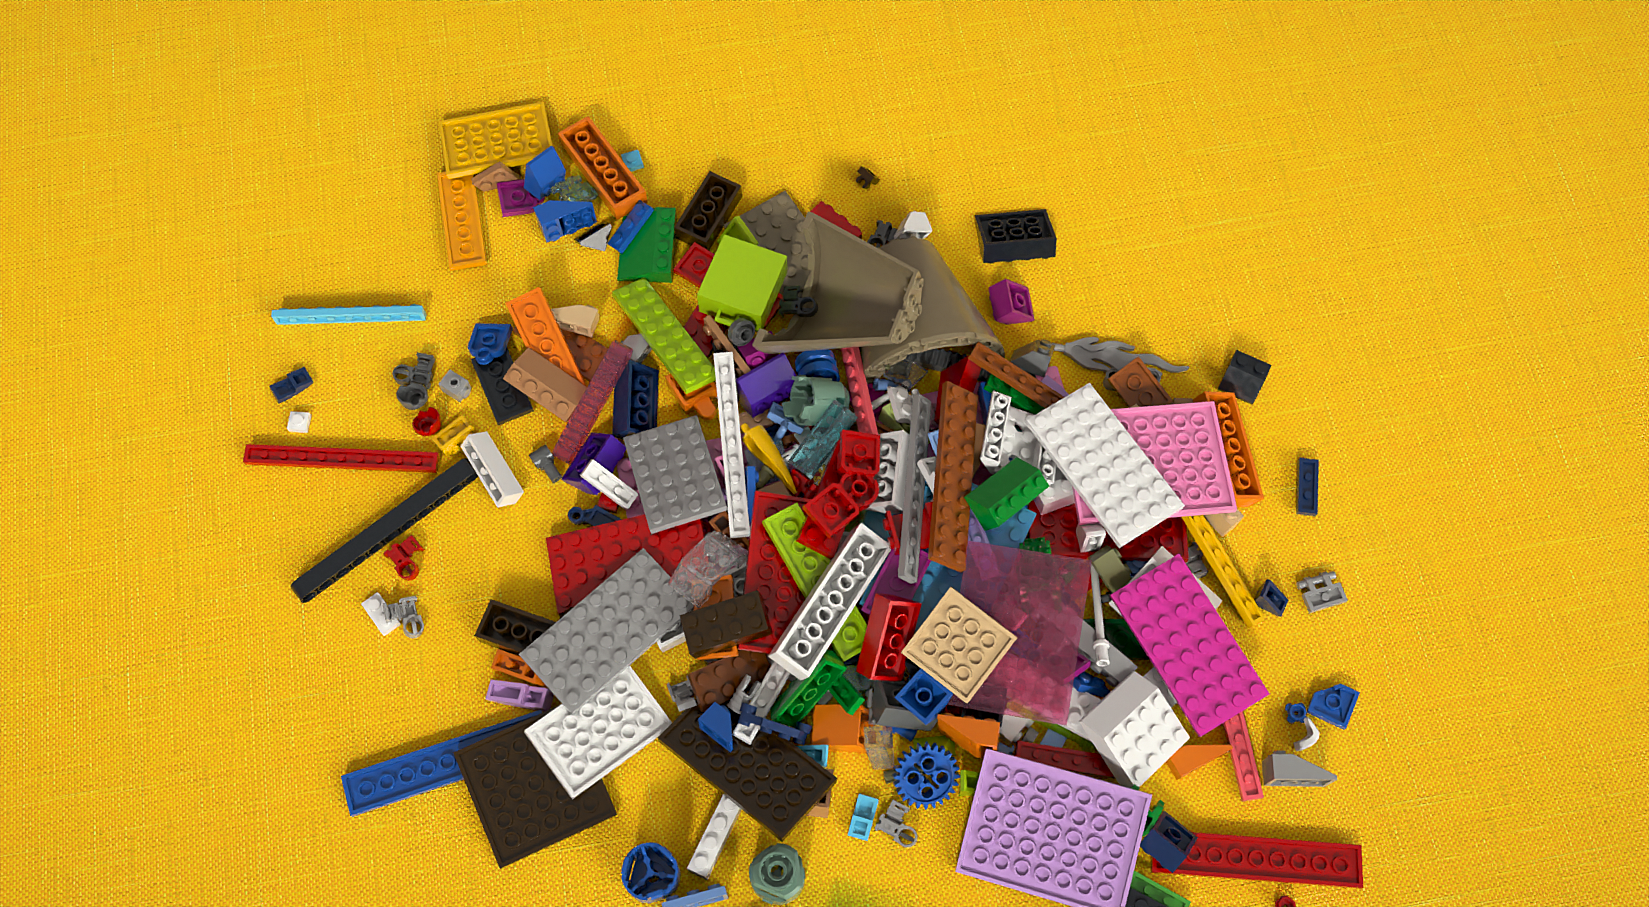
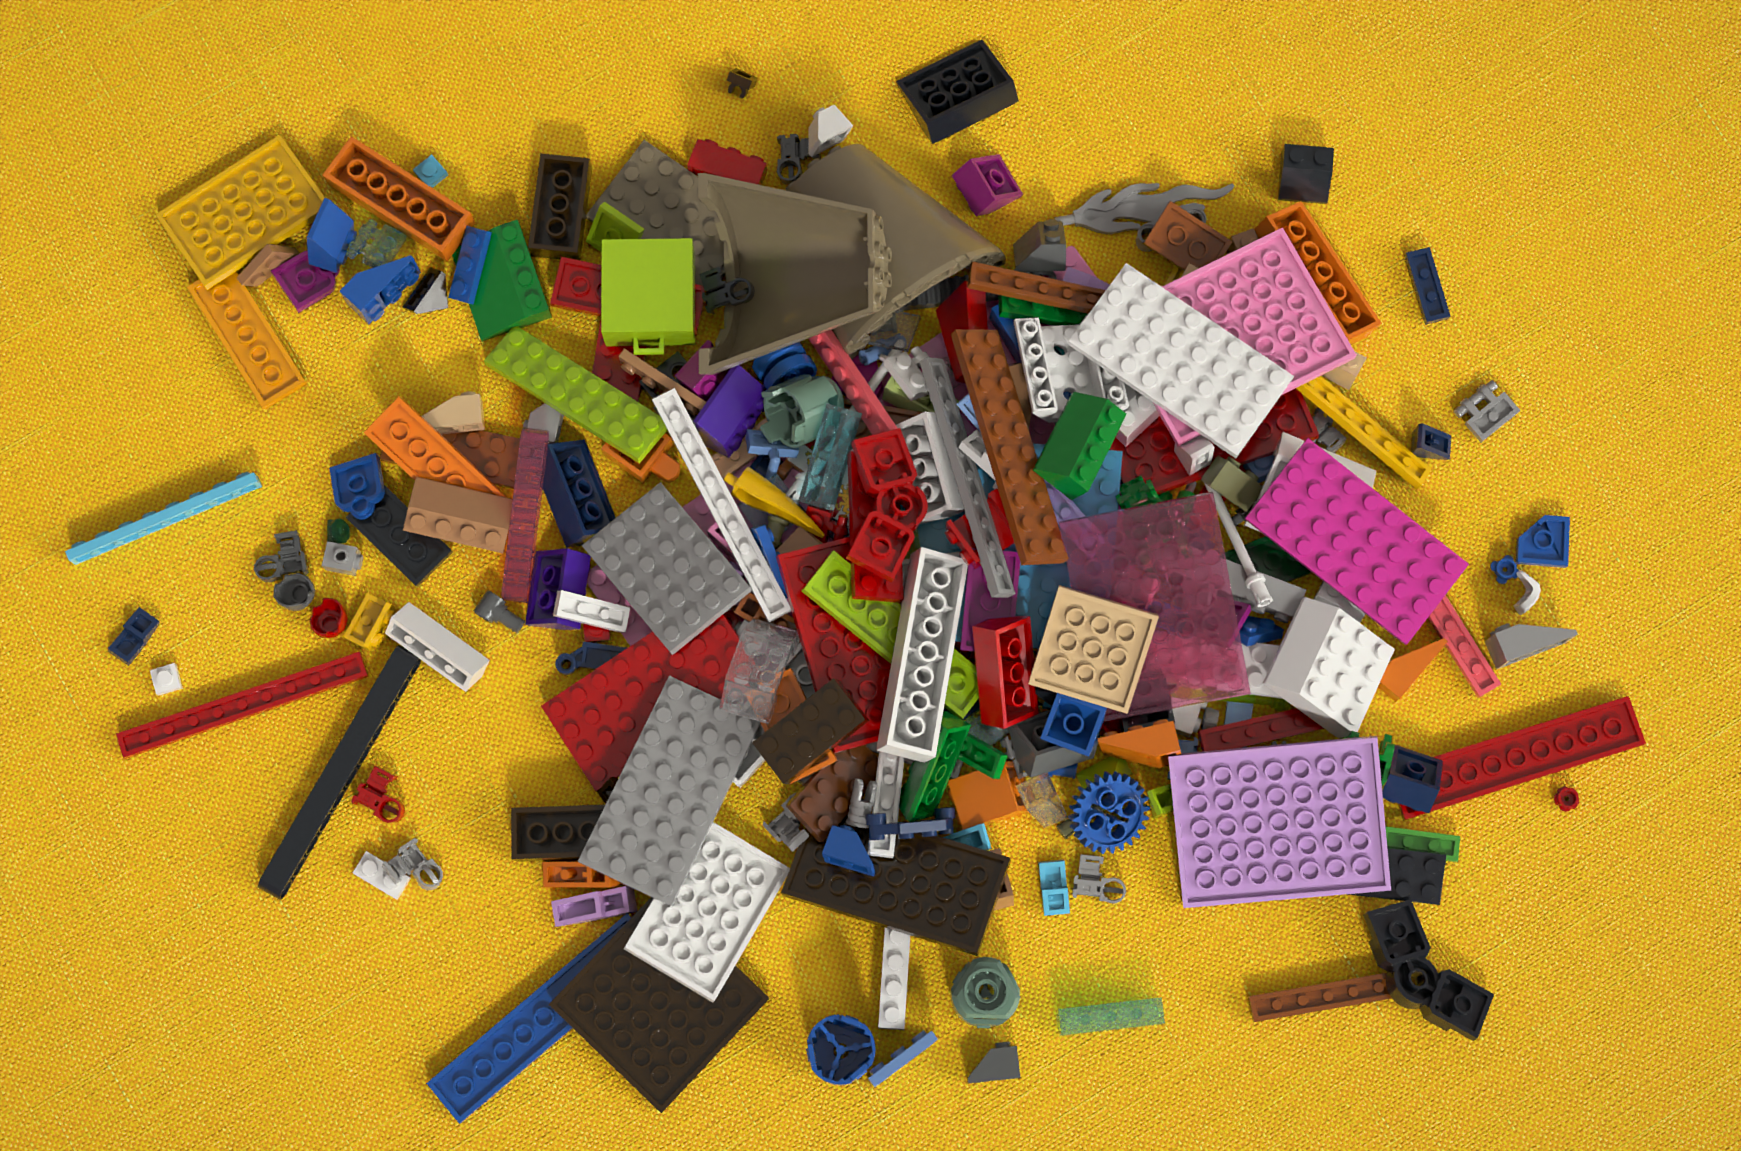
camera: 20 degrees left, 10 degrees up
(462, 367) = (337, 531): none -> clear green plate
(741, 331) = (674, 357): dark grey plate -> none

